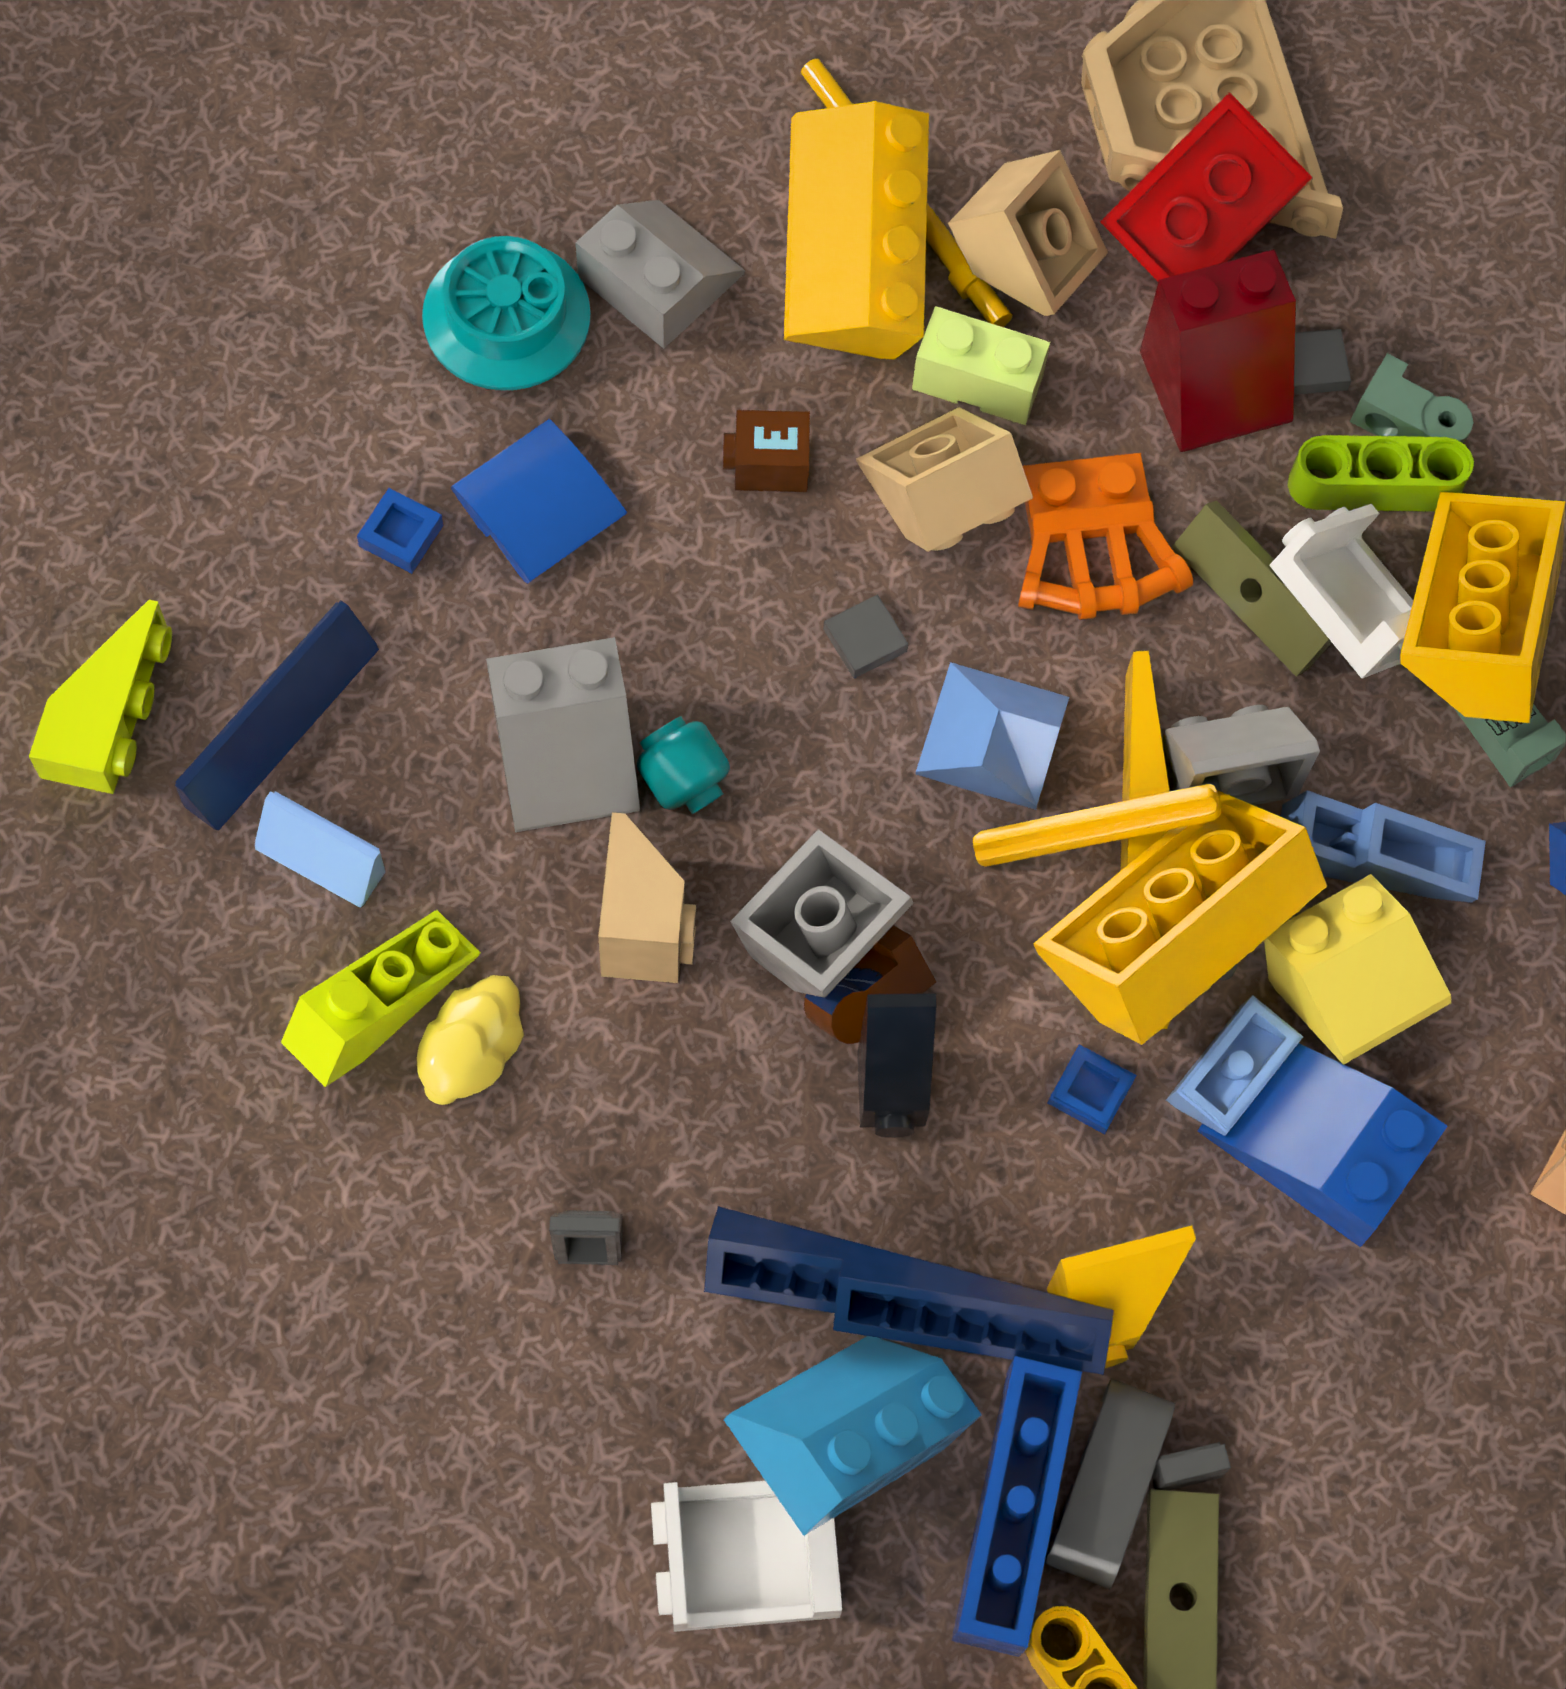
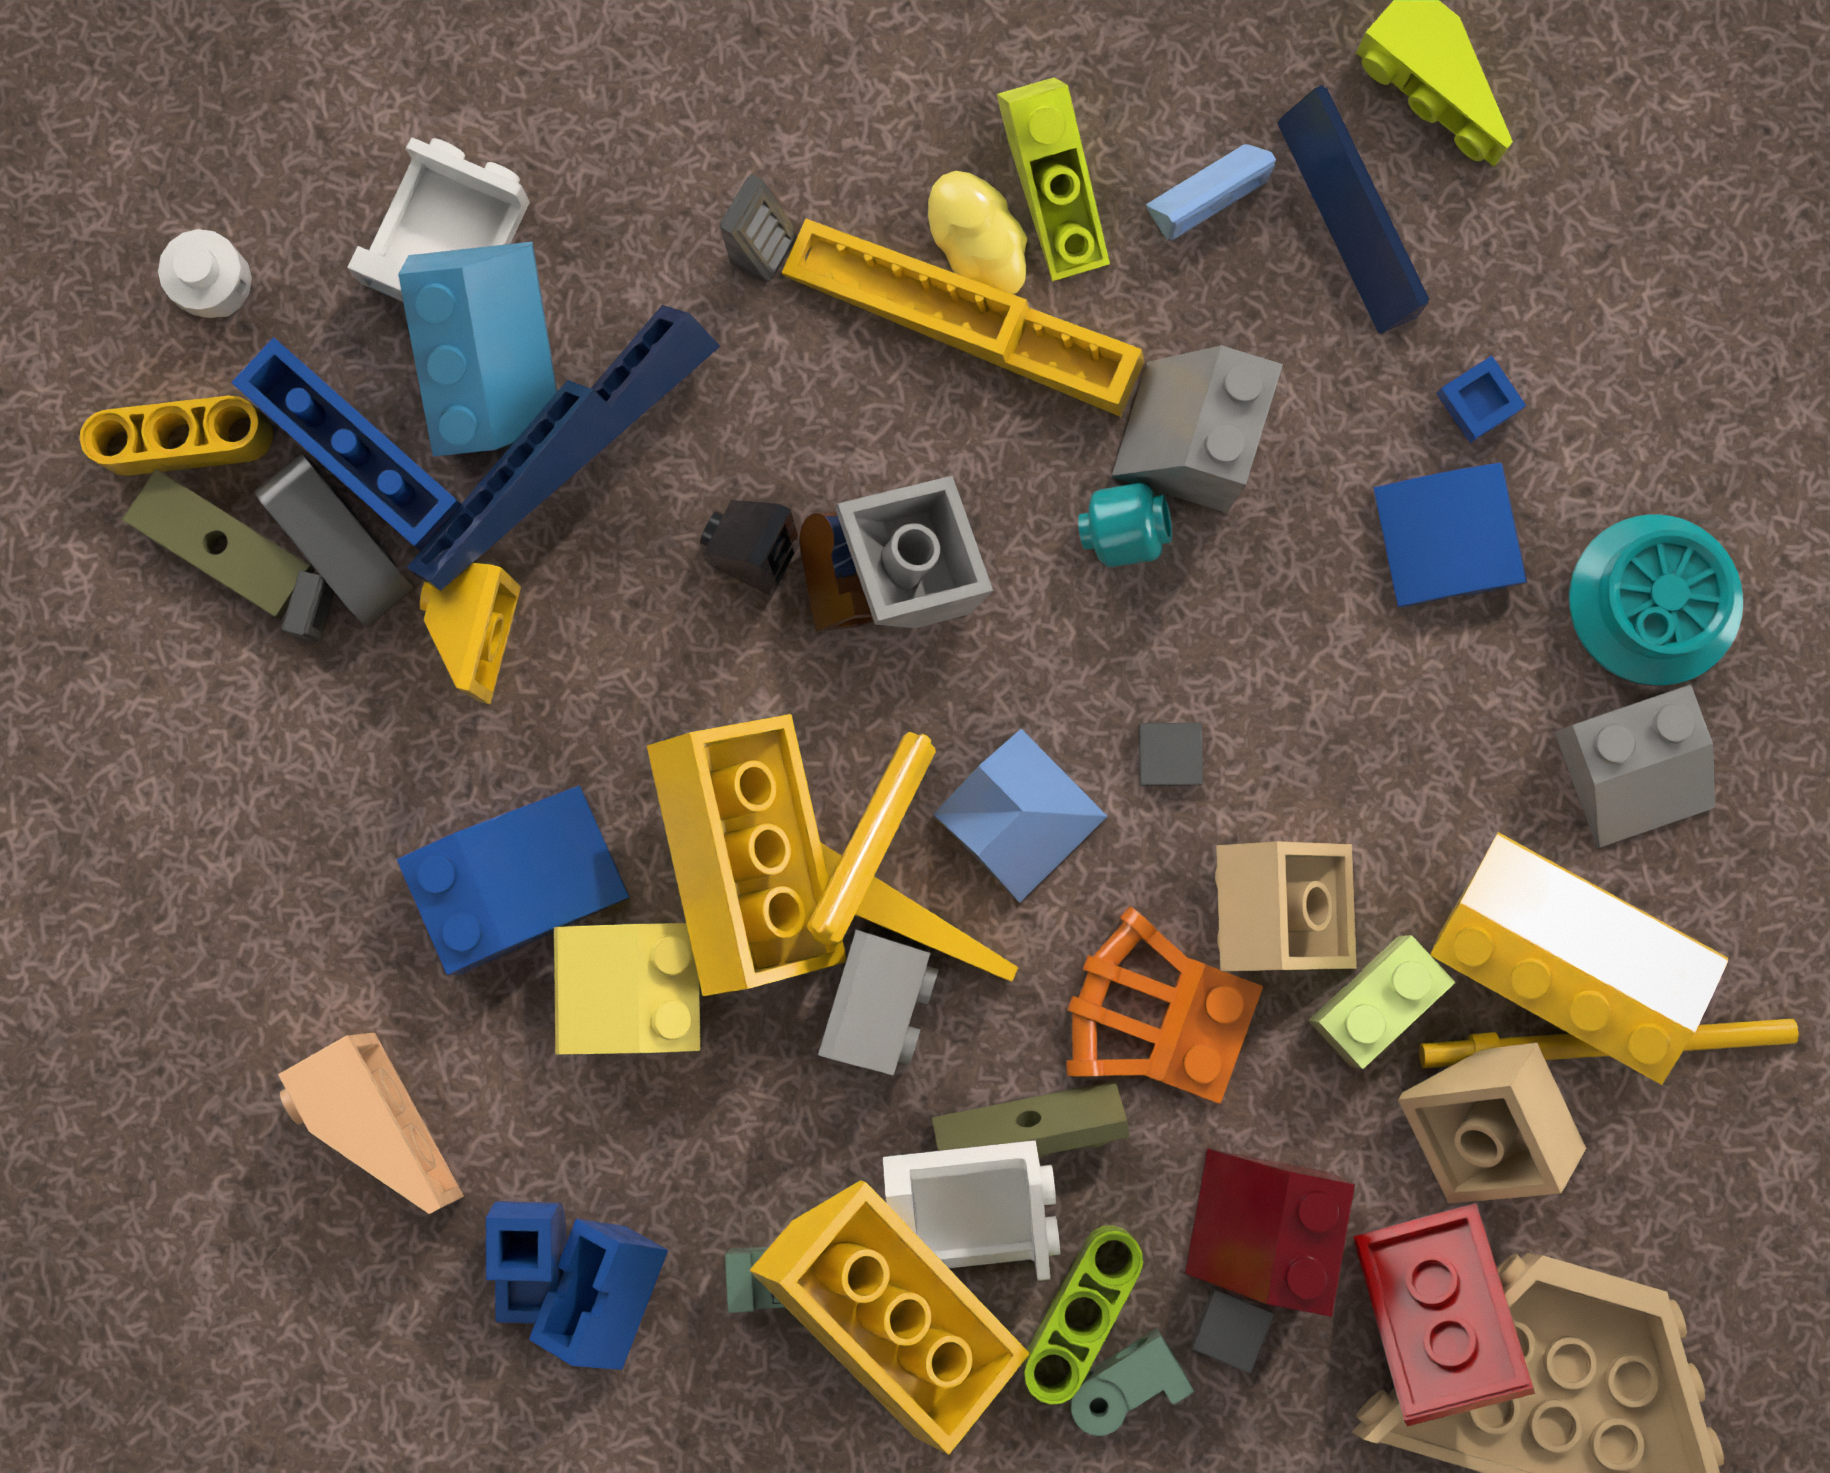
camera: 125 degrees right, 15 degrees up
(559, 1015) = (967, 316): none -> yellow slope
(643, 910) = (1006, 410): tan slope -> none
(769, 450) = (1393, 761): reddish brown brick -> none
(1091, 1089) = (660, 712): blue tile -> none
(1235, 1066) = (610, 842): light blue slope -> none
(1391, 845) = (729, 1087): medium blue slope -> none

